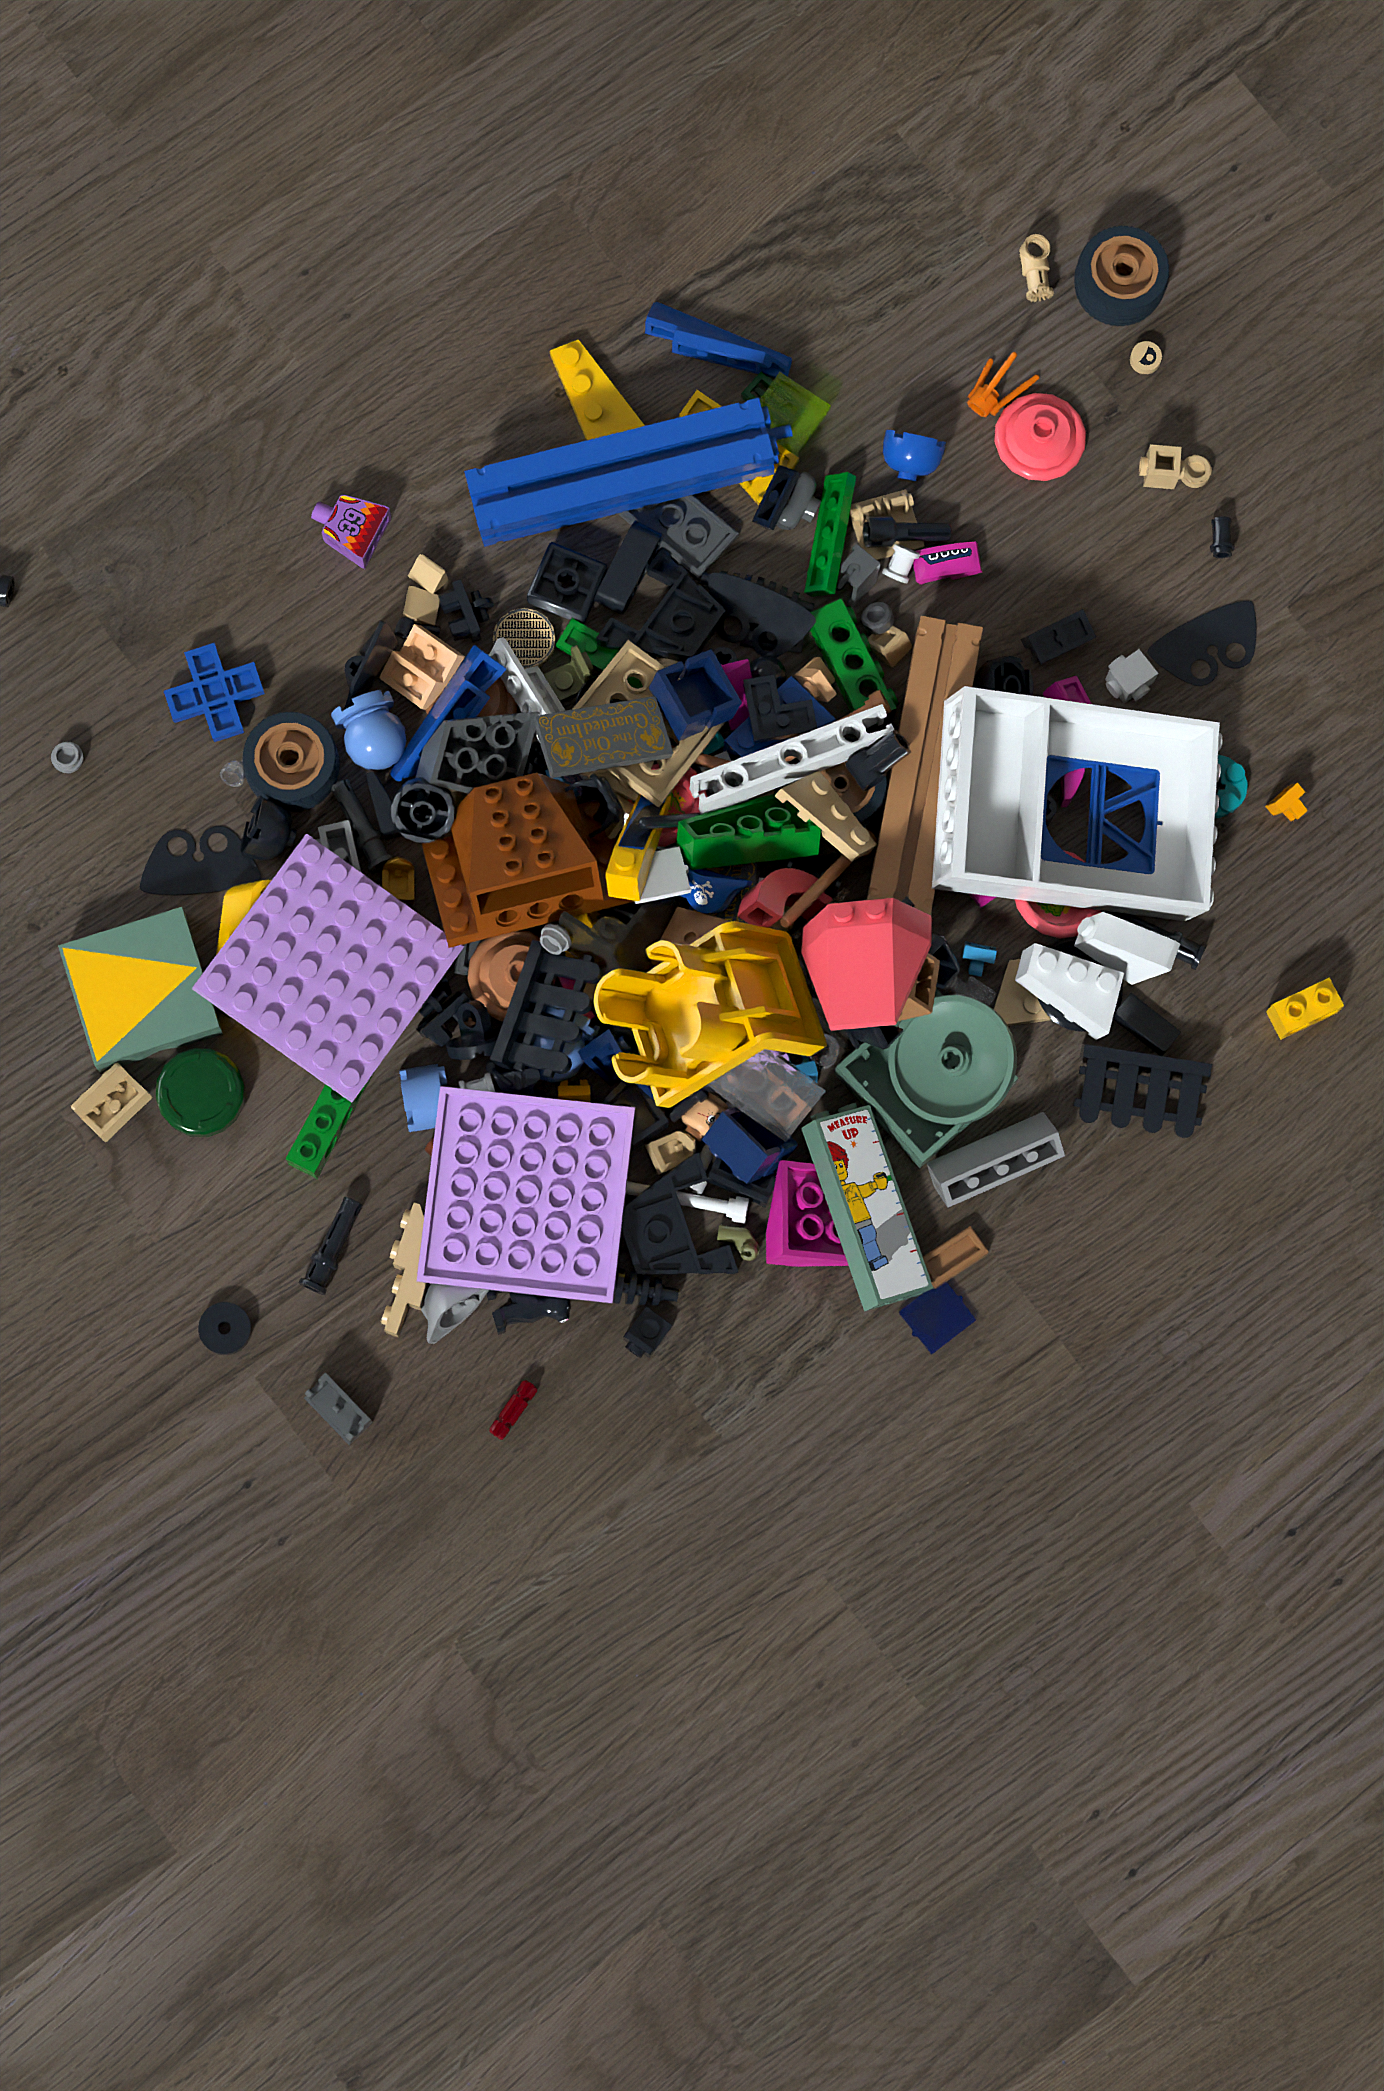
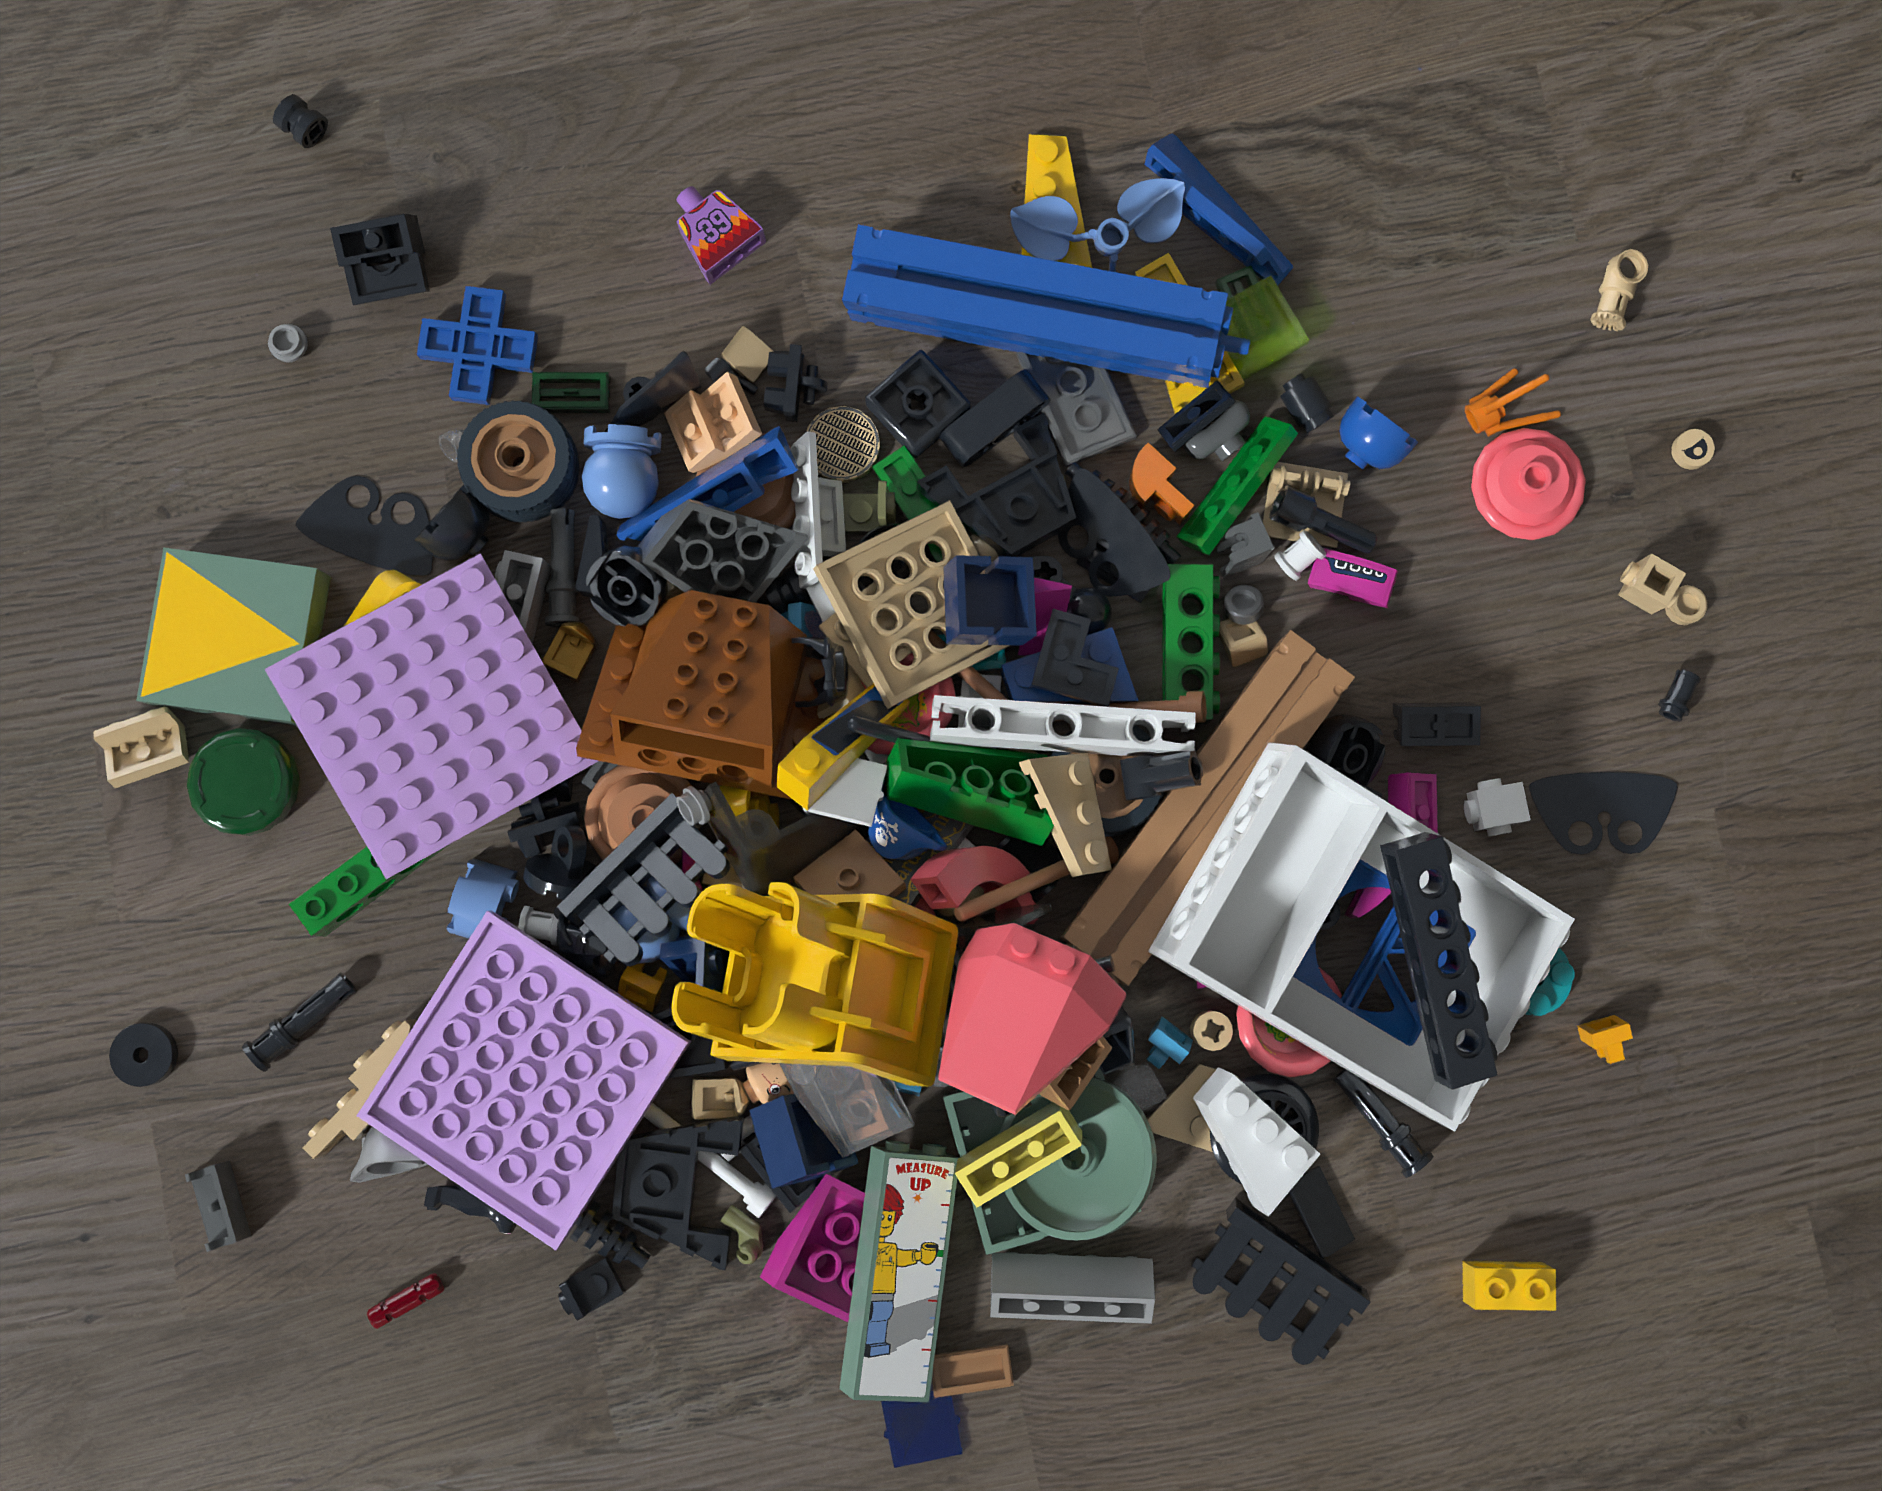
camera: 35 degrees right, 5 degrees up
(102, 650) = (380, 241): none -> black brick
(297, 683) = (572, 406): none -> dark green tile
(428, 574) = (771, 323): tan slope -> none
(603, 736) = (860, 600): dark grey tile -> none
(666, 363) = (1148, 207): none -> medium blue plant
(765, 560) = (1151, 480): none -> orange brick
(817, 680) = (1140, 642): light nougat bracket -> none
(851, 451) = (1306, 402): none -> black brick
(910, 1070) = (1018, 1153): none -> light yellow brick
(1000, 937) = (1204, 1031): none -> tan wheel
(1120, 786) = (1404, 864): none -> black brick
(1121, 275) = (1712, 343): wheel -> none
(1126, 947) = (1339, 1122): white slope -> none

